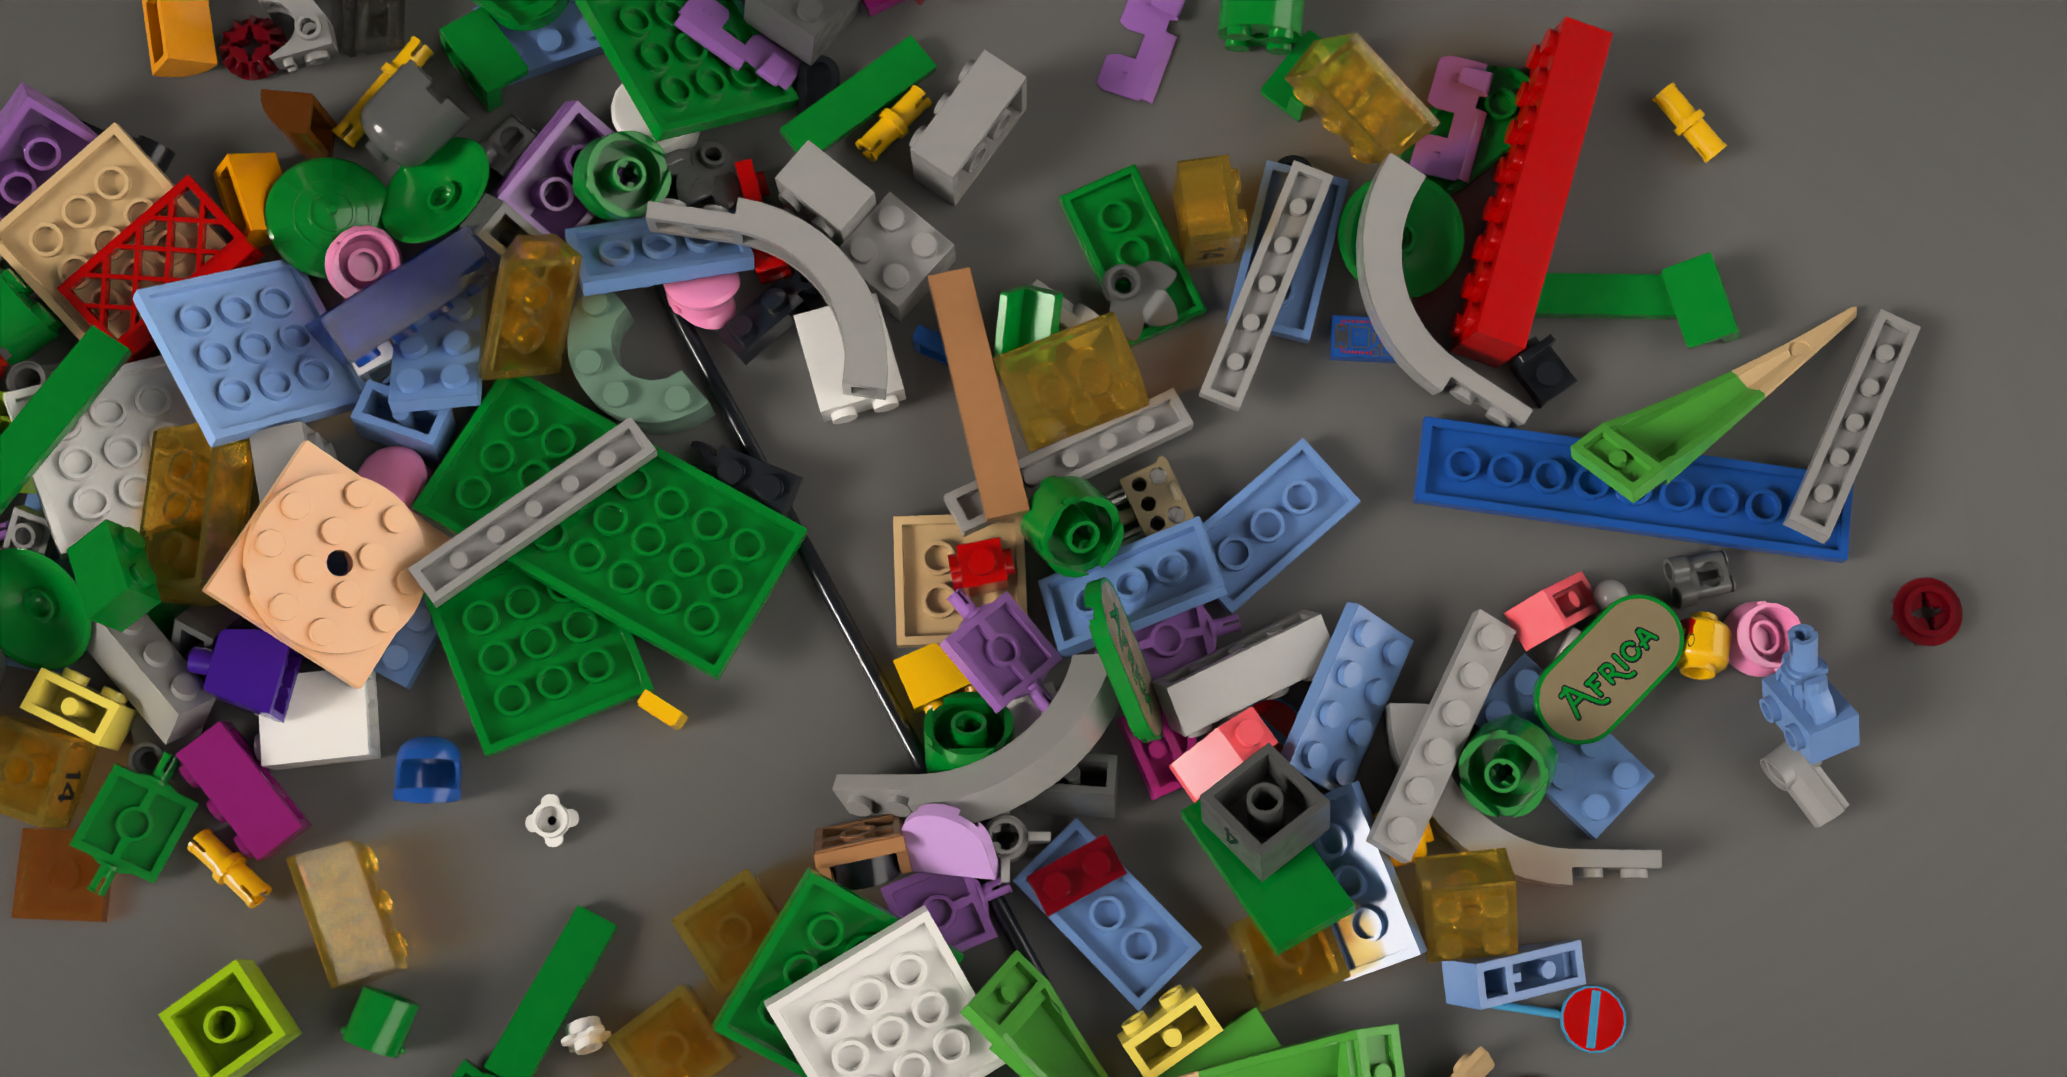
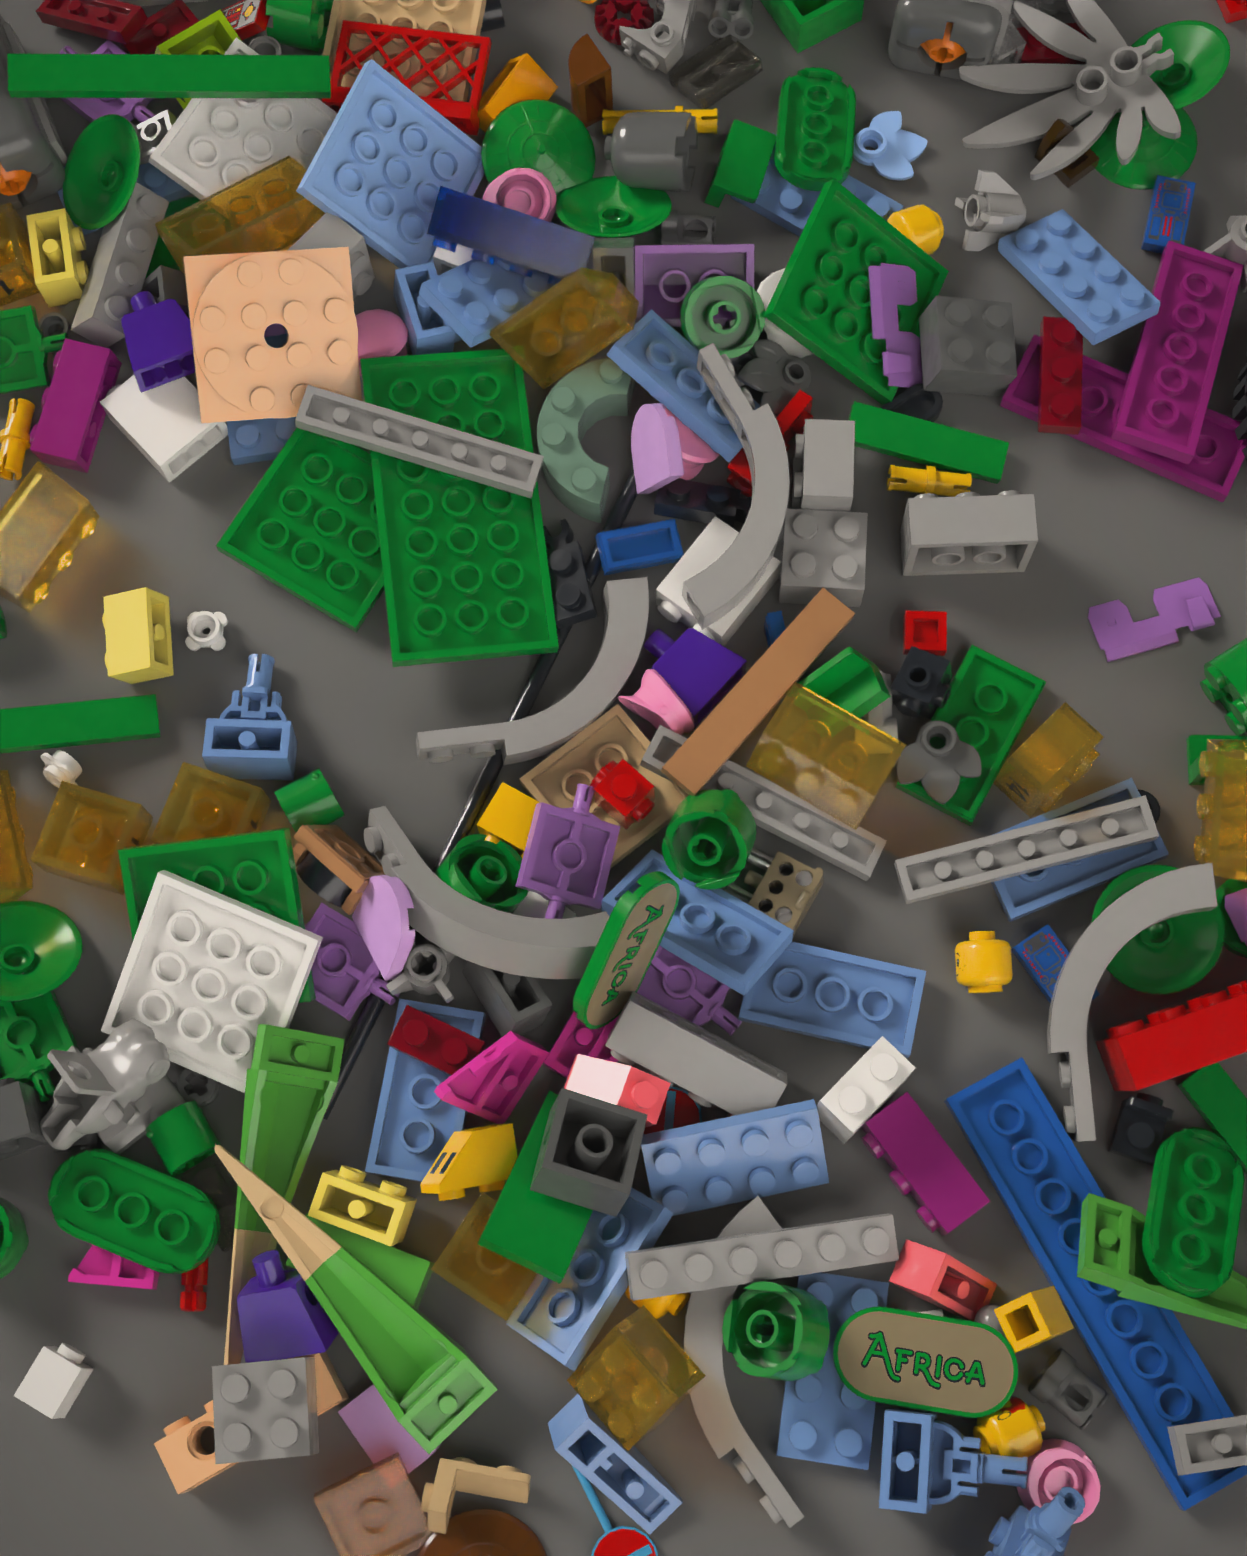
camera: 60 degrees right, 5 degrees down
(114, 575) = (158, 200): green brick -> none
(428, 771) = (178, 517): blue helmet -> none
(514, 883) = (138, 636): none -> light yellow brick
(662, 710) = (343, 646): yellow tile -> none
(685, 846) = (253, 732): none -> medium blue brick
(696, 319) = (655, 448): none -> lavender tile
(766, 398) = (639, 547): none -> blue tile
(784, 837) = (309, 801): none -> green piece
(852, 488) = (537, 735): none -> light grey arch
(911, 435) = (696, 668): none -> dark purple torso
(923, 482) = (659, 704): none -> bright pink piece
(1021, 225) = (925, 631): none -> red plate
(1065, 260) = (922, 684): none -> black brick
(1142, 846) = (495, 1078): none -> dark pink wing
(1195, 914) = (472, 1159): none -> yellow slope
(1328, 388) = (983, 963): none -> yellow head
(1369, 556) = (863, 1089): none -> white brick
(1454, 557) = (923, 1165): none -> magenta brick
(1633, 562) = (1033, 1318): none -> yellow brick
(1637, 380) = (1193, 1213): none -> green tile
(1687, 723) = (927, 1463): none -> medium blue brick

